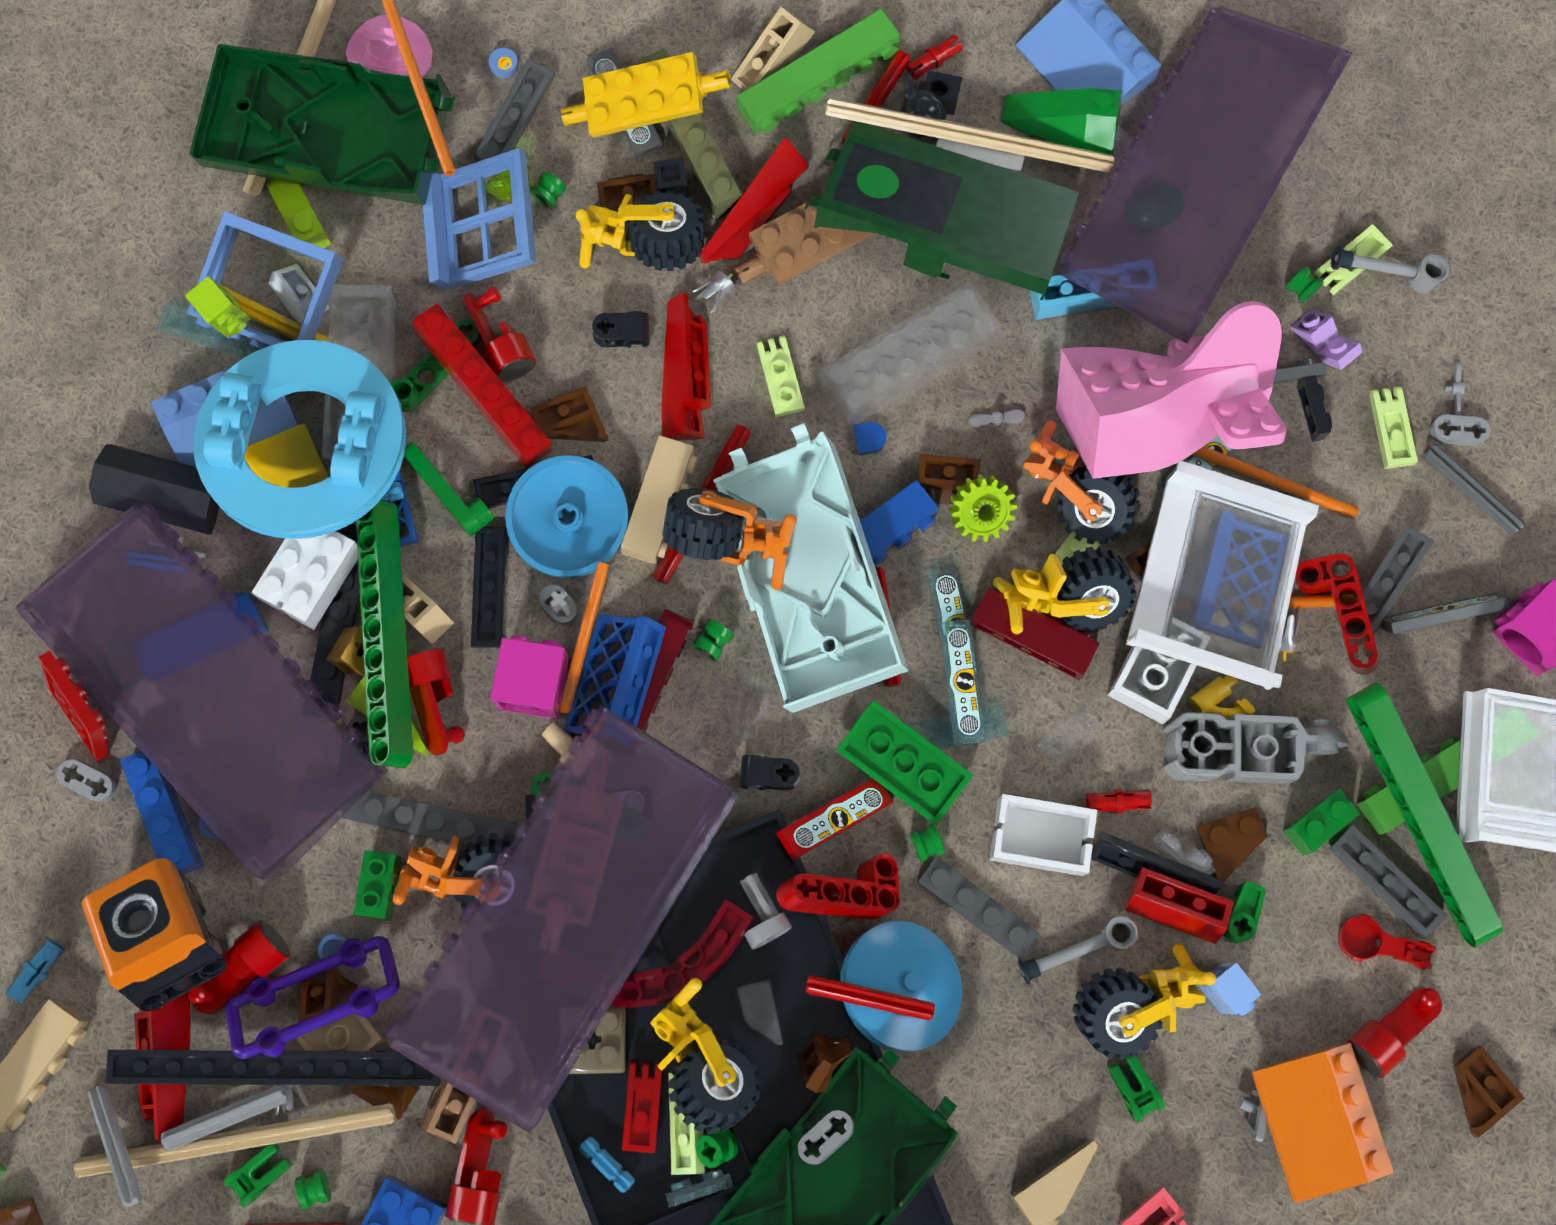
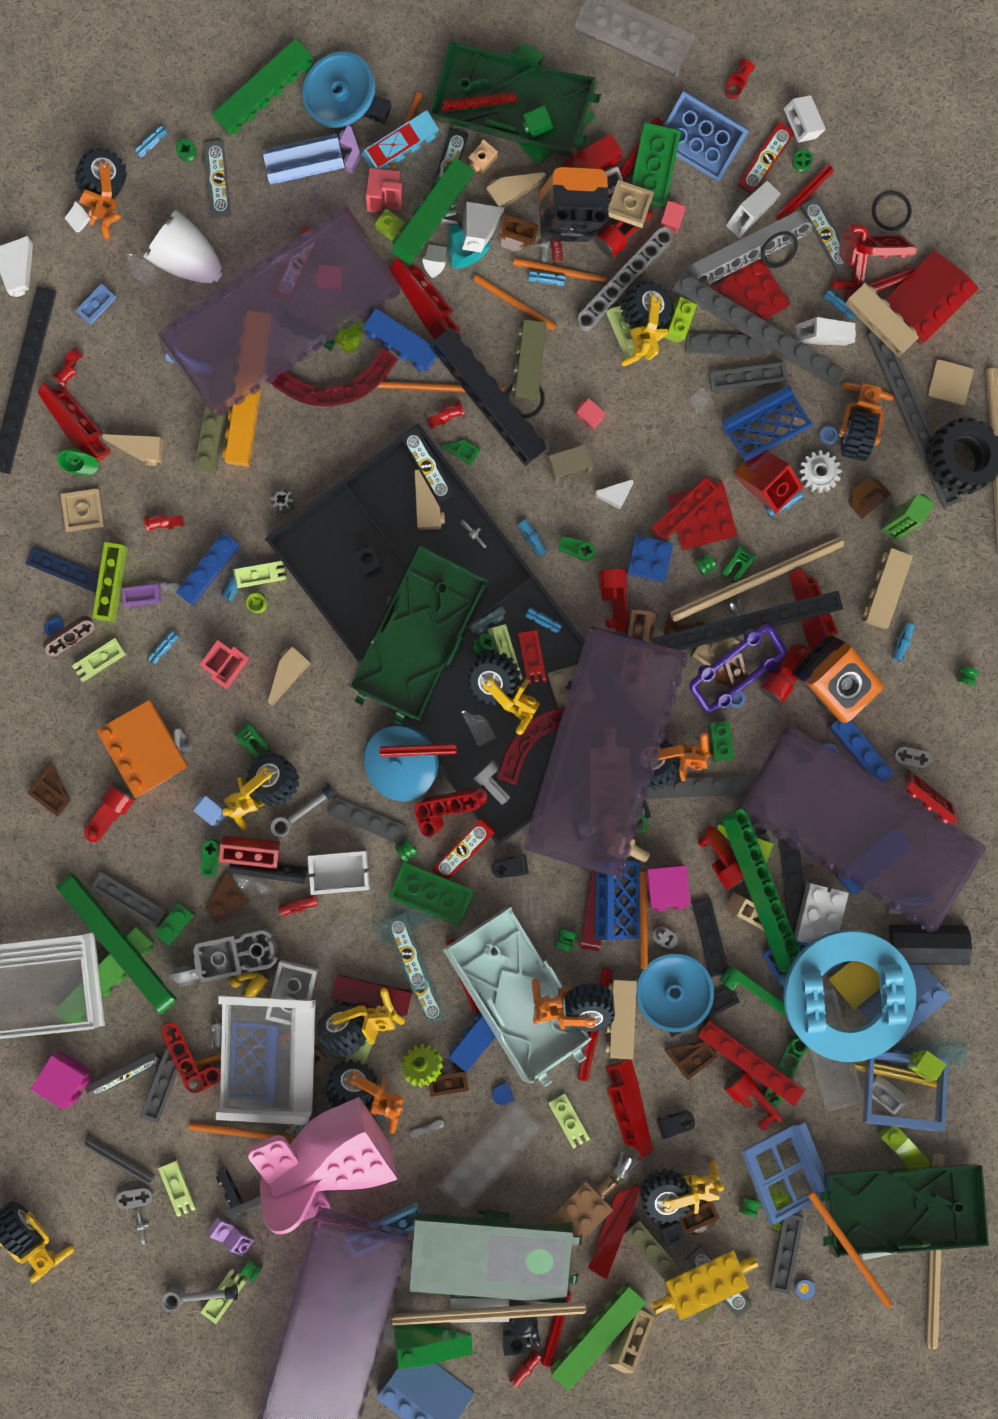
camera: 165 degrees right, 10 degrees up
(114, 1146) = (823, 558): light grey axle -> none
(224, 1117) = (766, 589): light grey axle -> none
(349, 652) = (781, 874): pearl gold brick -> none
(377, 50) = (891, 1275): bright pink hat -> none
(821, 1058) = (437, 709): reddish brown slope -> none
(831, 1144) = (427, 669): light grey beam -> none
(1358, 940) = (139, 861): red piece -> none

